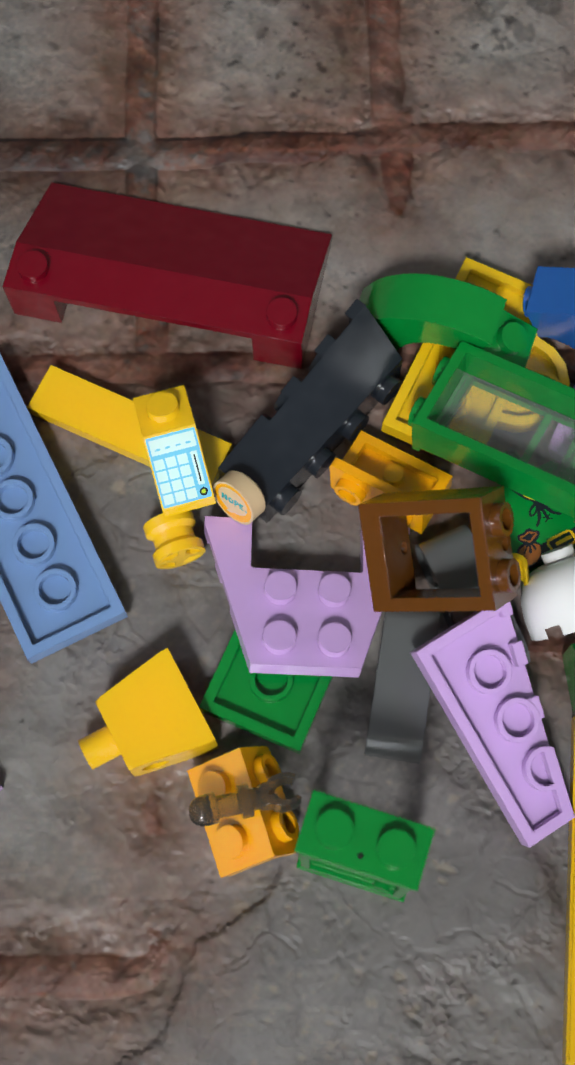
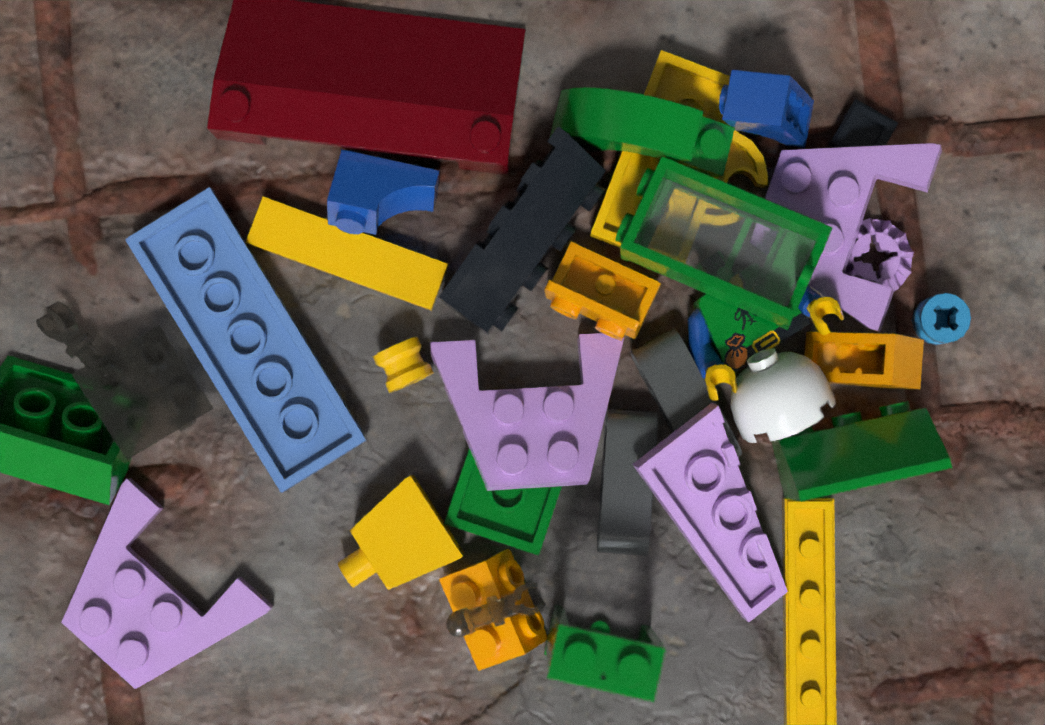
camera: 10 degrees left, 15 degrees up
(164, 358) = (373, 189): none -> blue arch
(174, 450) = (395, 287): slope -> none
(239, 497) = (462, 326): tan tile -> none
(390, 554) = (609, 383): reddish brown window -> none

